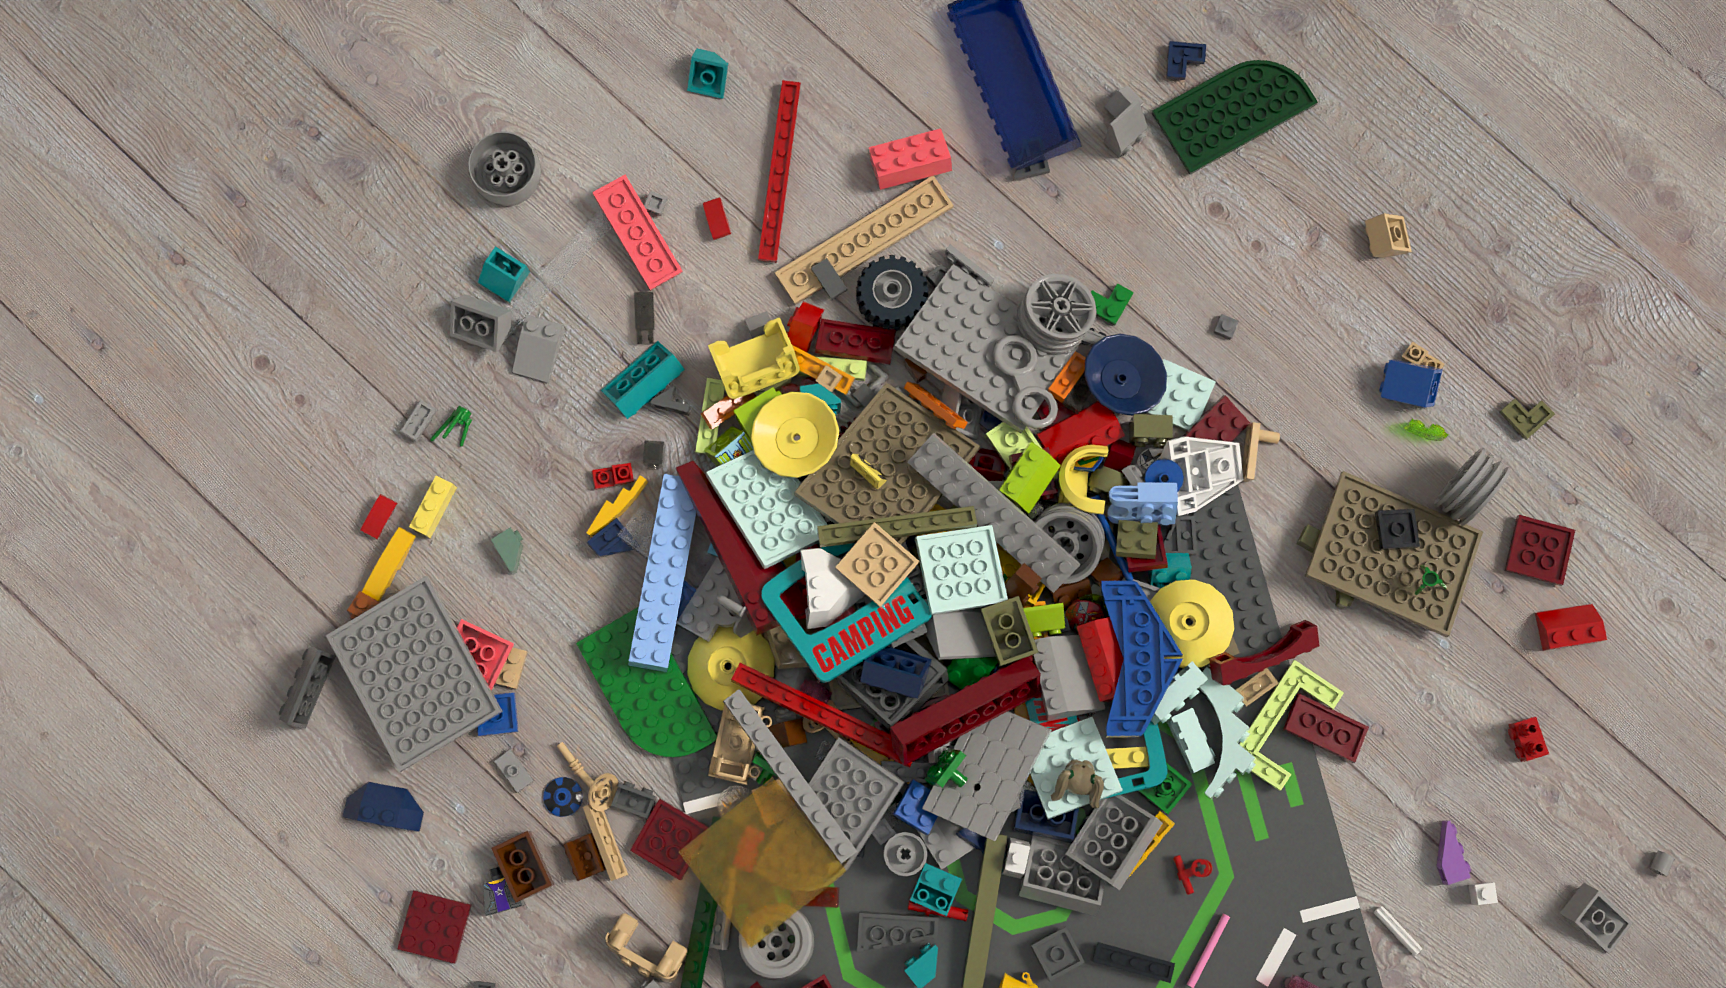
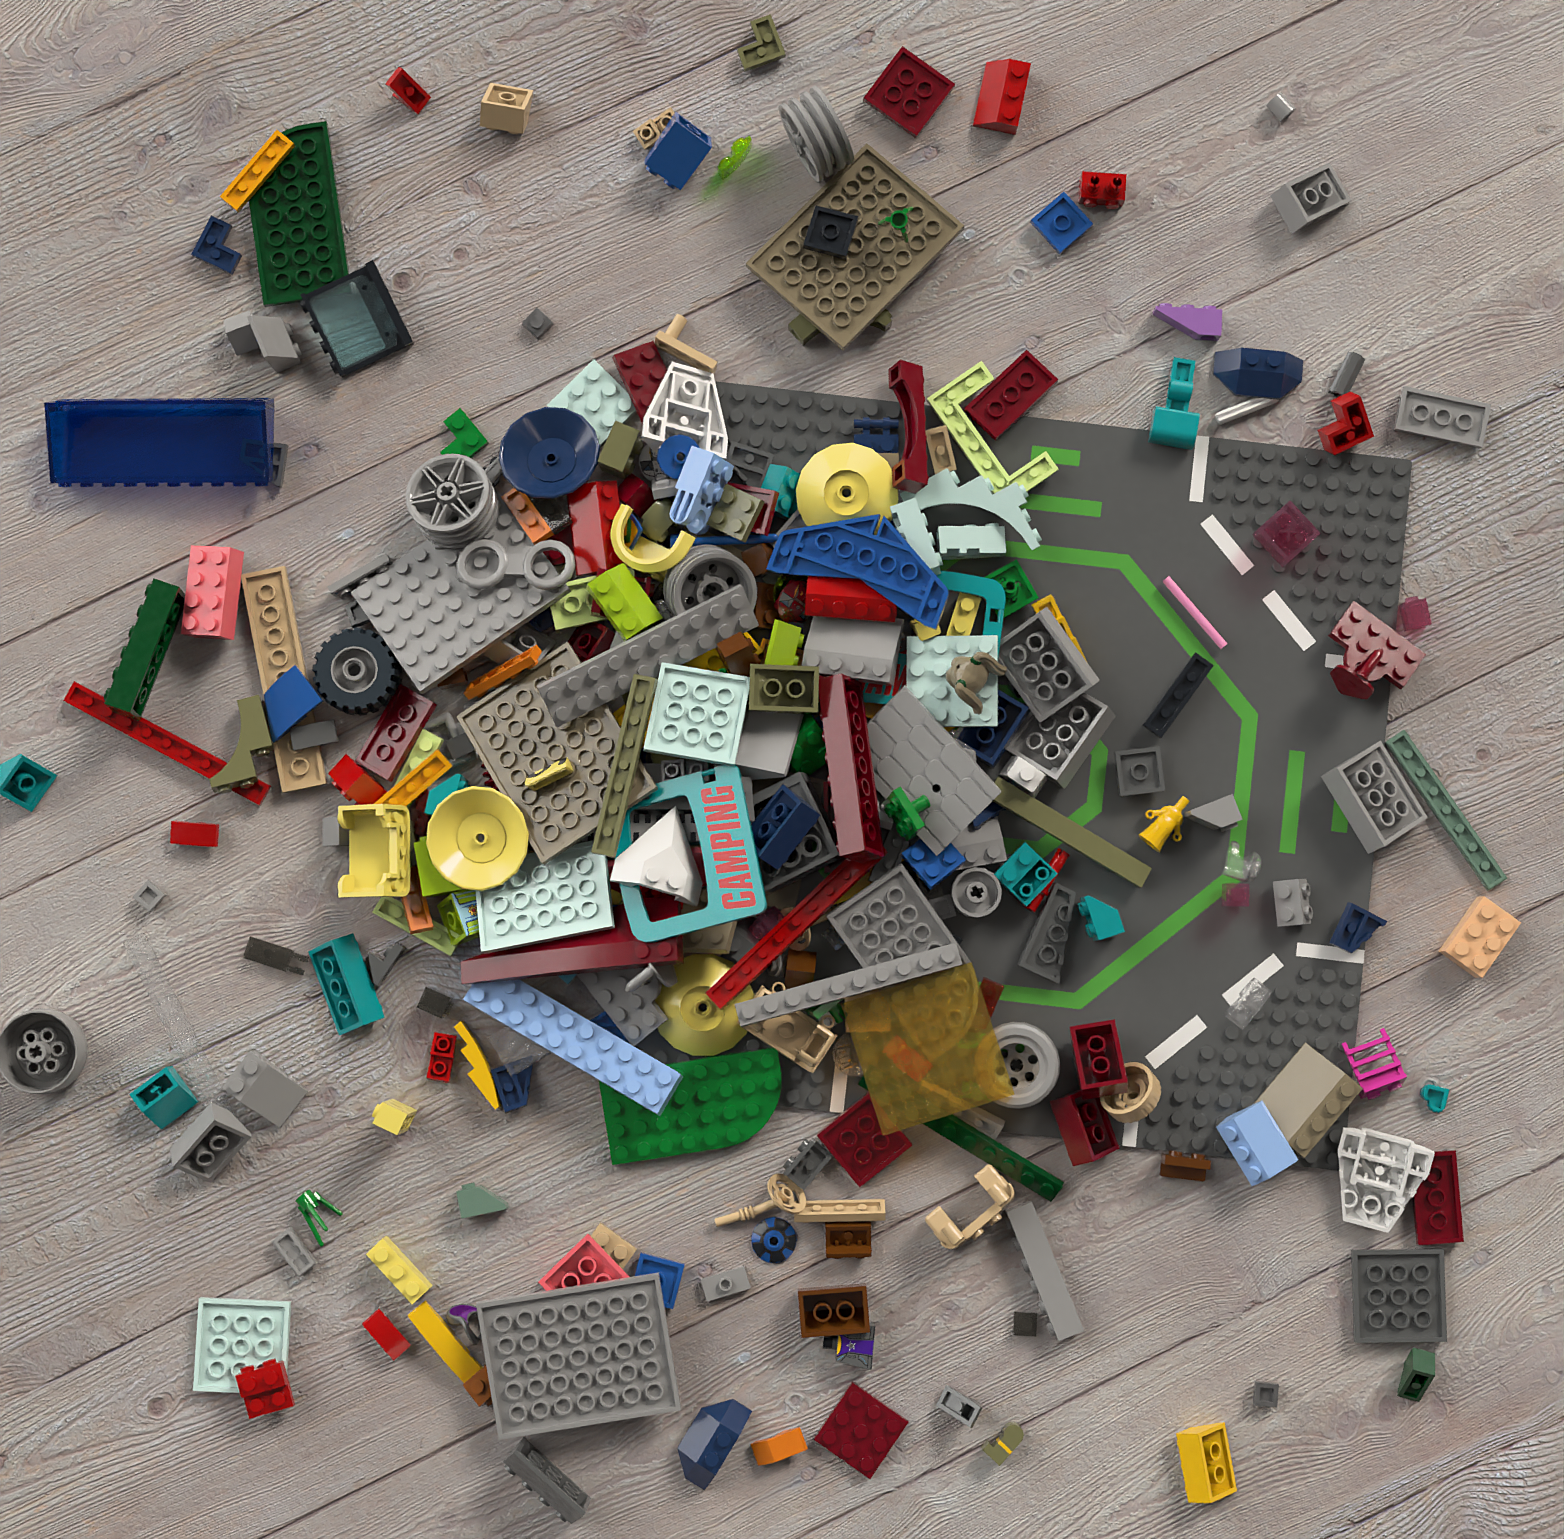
camera: 65 degrees left, 5 degrees up
(303, 438) = (265, 1388): none -> red plate
(331, 408) = (236, 1336): none -> light aqua plate
(398, 864) = (779, 1447): none -> orange slope
(414, 568) = (460, 1314): none -> dark grey piece
(551, 455) = (393, 1116): none -> light yellow brick
(637, 232) = (175, 928): coral plate -> none
(807, 234) = (253, 741): none -> olive arch
(829, 378) = (428, 777): tan plate -> none
(845, 125) = (145, 649): none -> dark green brick
(847, 250) = (289, 702): none -> blue slope
(877, 564) = (658, 803): tan plate -> none
(1100, 729) = (922, 631): none -> light yellow slope
(1169, 185) = (356, 320): none -> clear light blue panel
(1184, 874) = (1107, 605): red piece -> none
(1241, 634) = (879, 443): none -> dark blue plate
(1256, 65) = (257, 171): none -> light orange plate
(1358, 873) = (1174, 423): none -> teal plate
(1369, 154) = (407, 90): none -> red slope
(1431, 928) = (1258, 372): none -> dark blue wedge
(1483, 893) = (1242, 303): white brick -> none
(1486, 716) = (1061, 223): none -> blue plate

